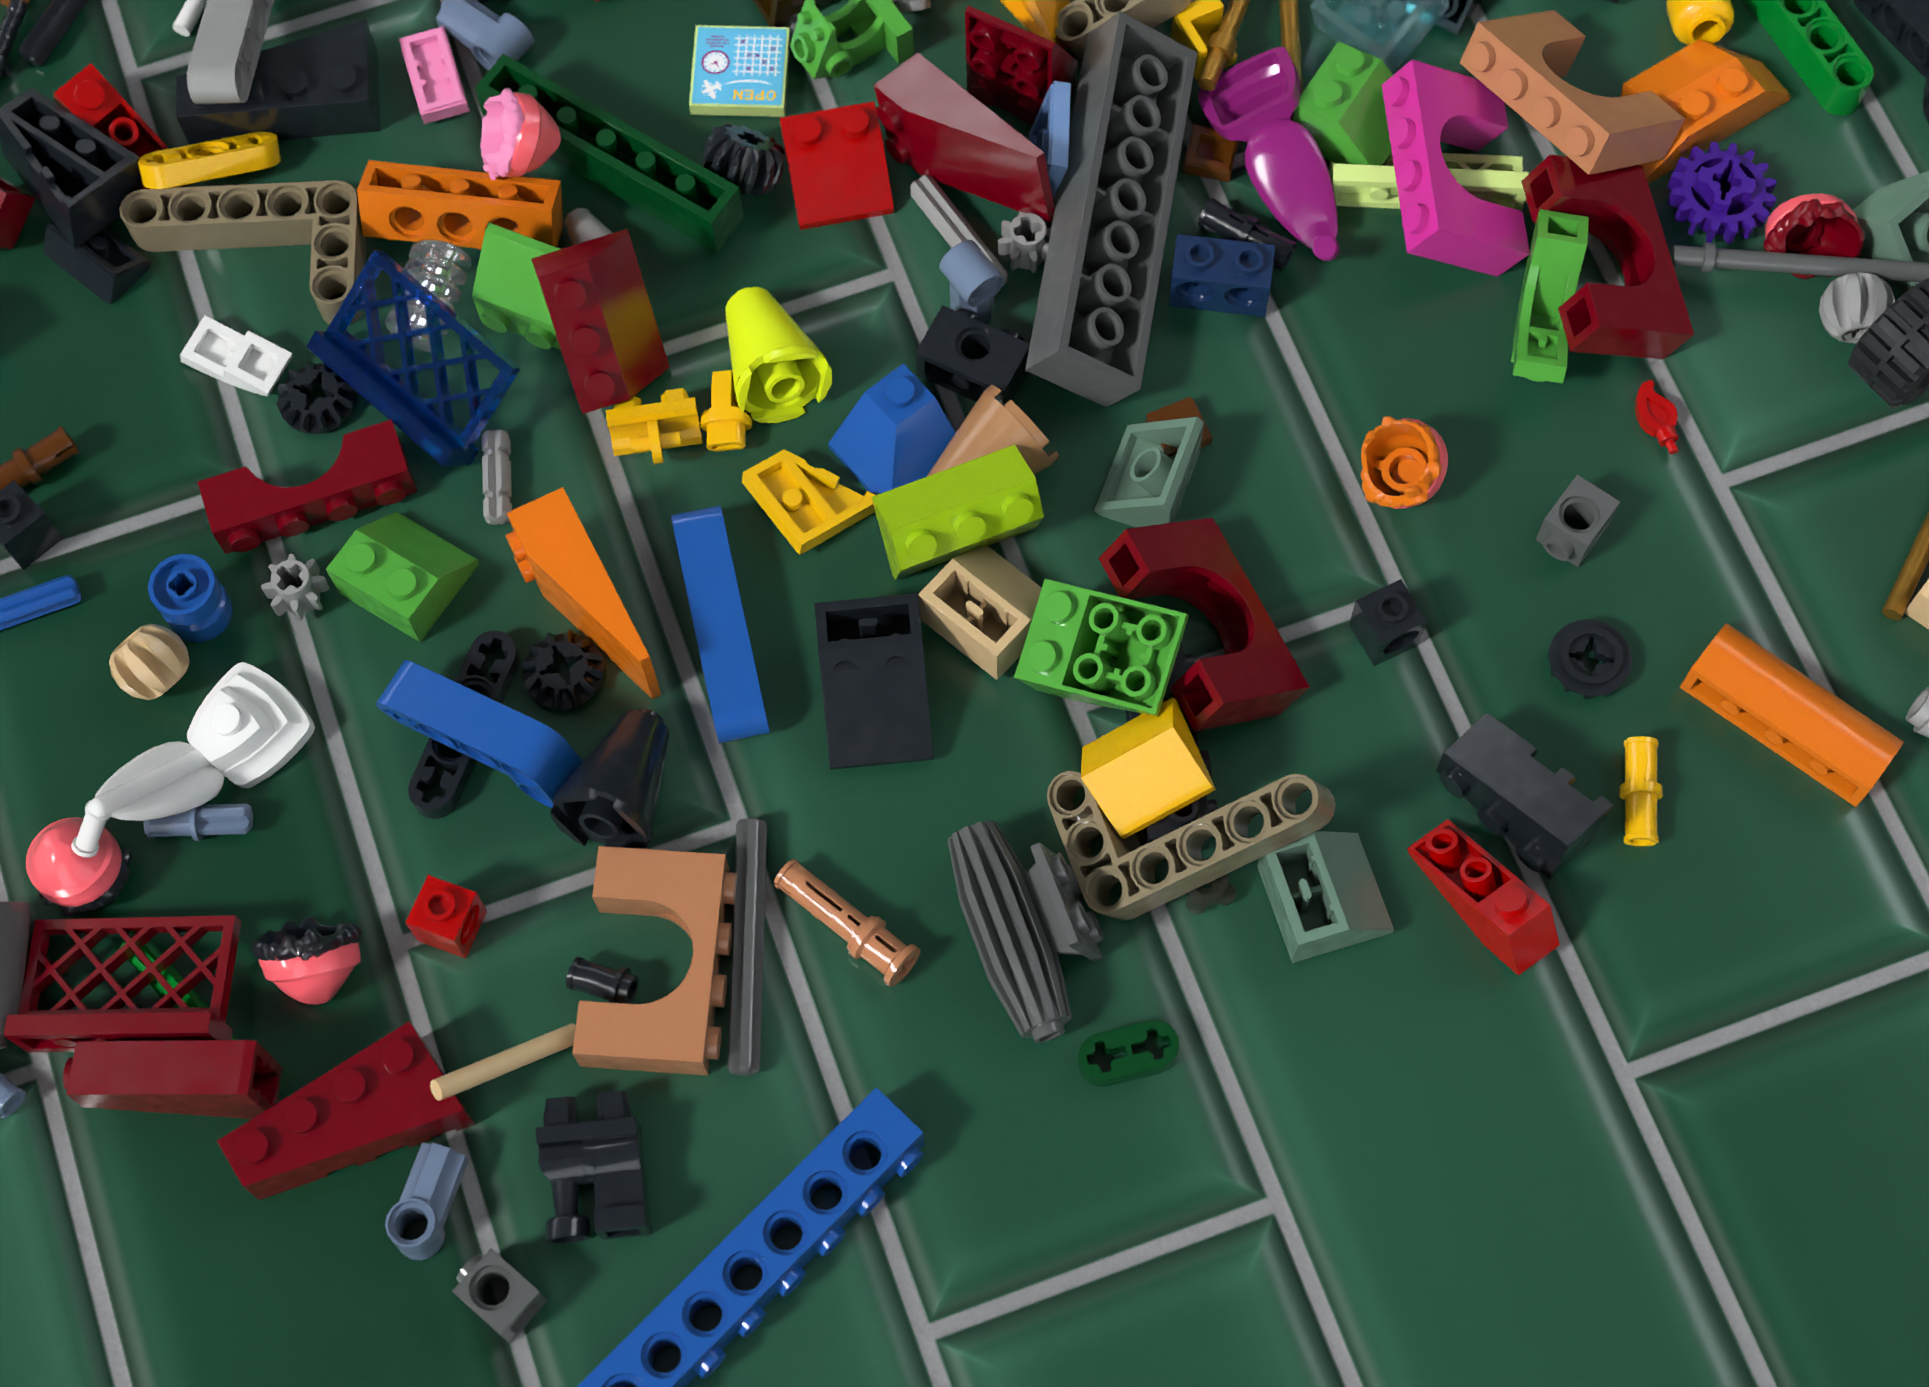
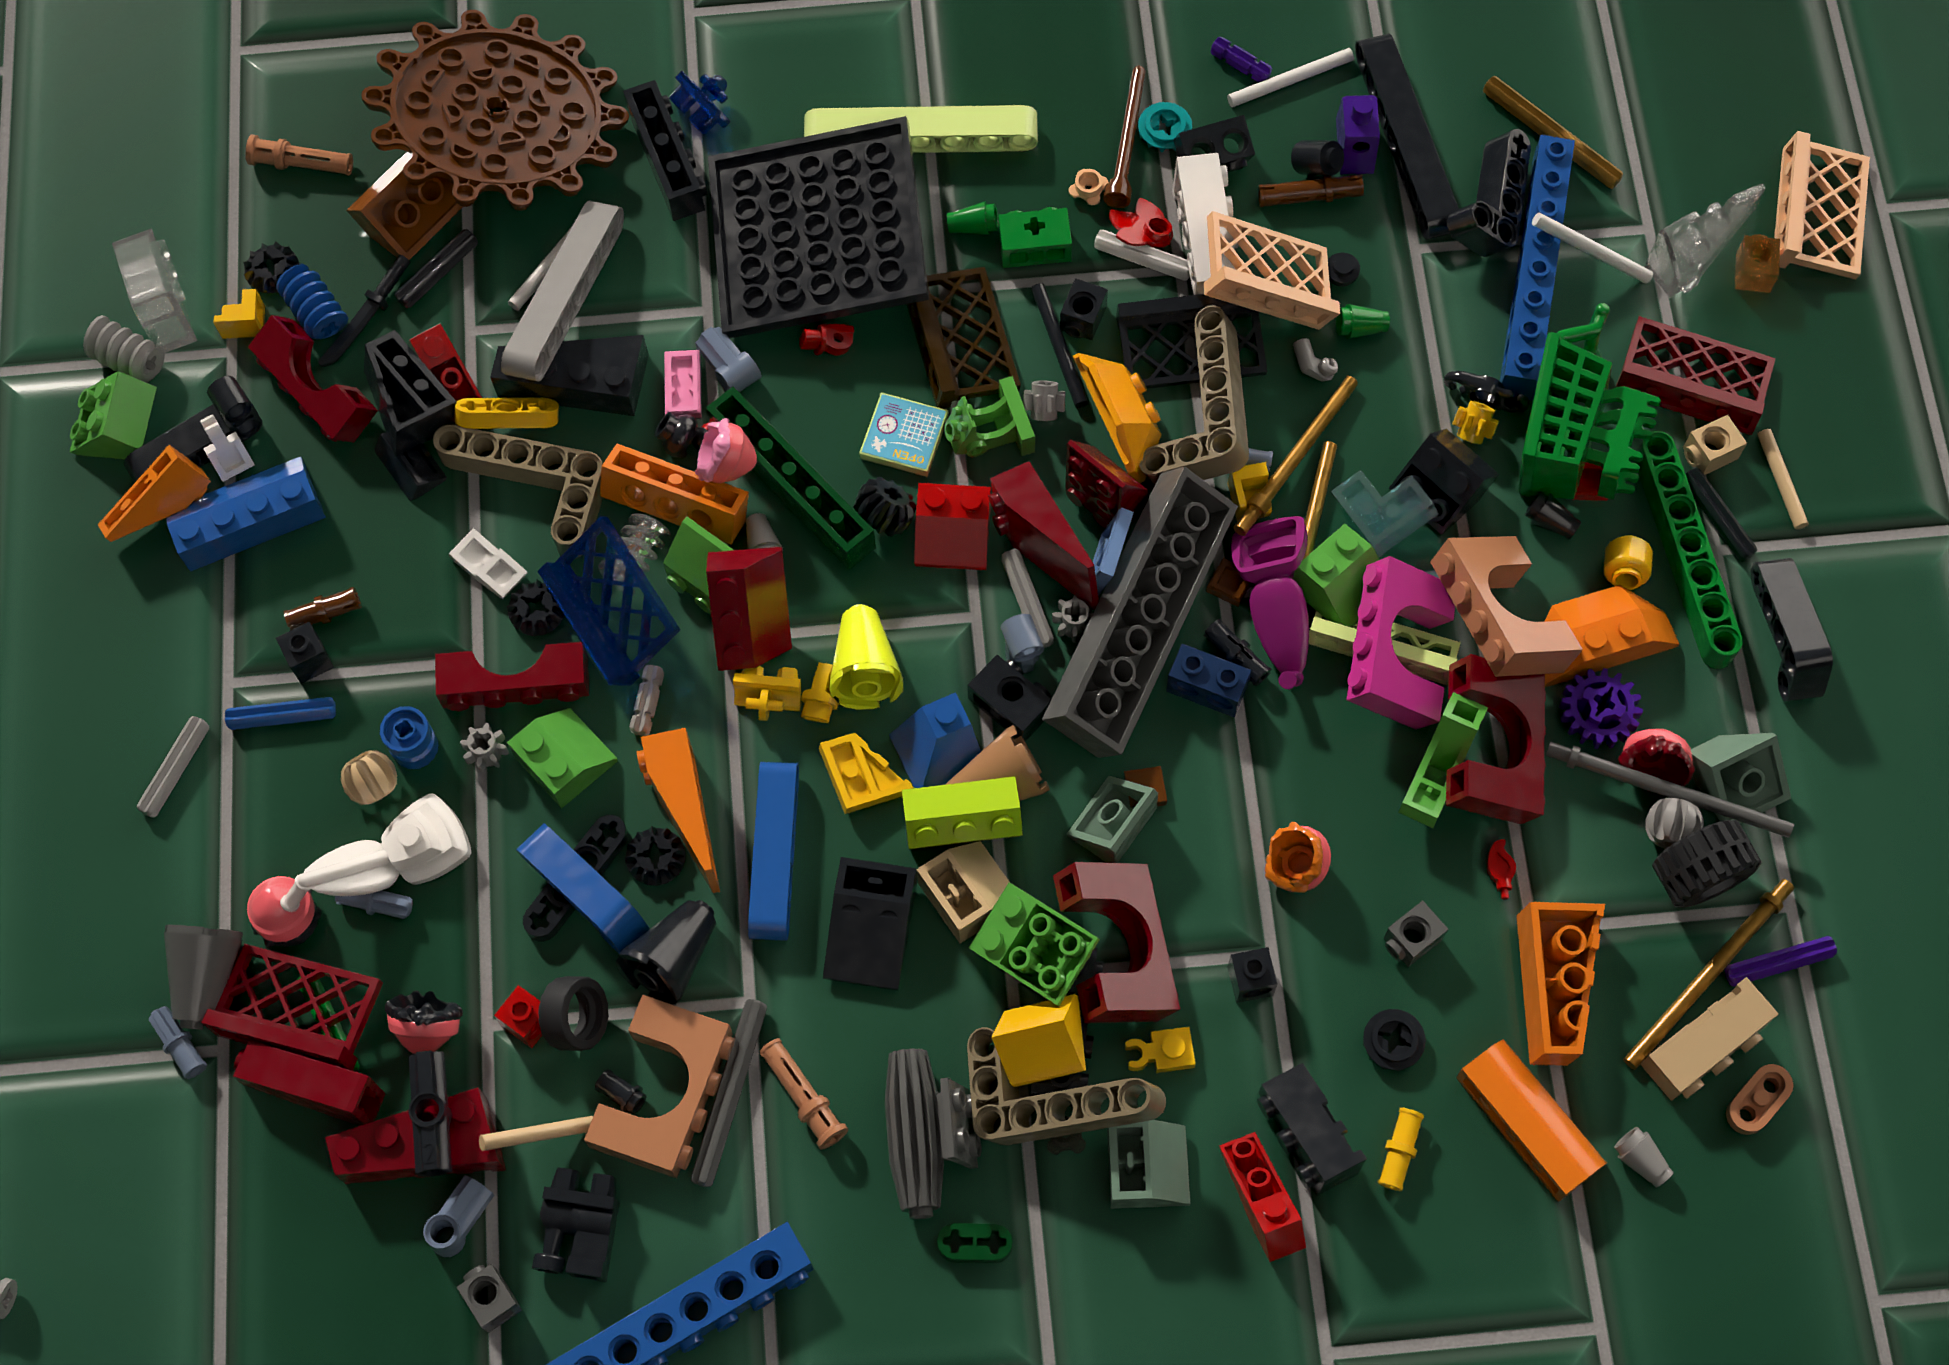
camera: 15 degrees right, 0 degrees up
(364, 1099) = (430, 1138): none -> black piece
(447, 133) = (679, 433): none -> black animal
(490, 902) = (592, 1013): none -> black tyre
(1304, 744) = (1168, 1049): none -> yellow plate
(1773, 527) = (1557, 975): none -> orange wedge

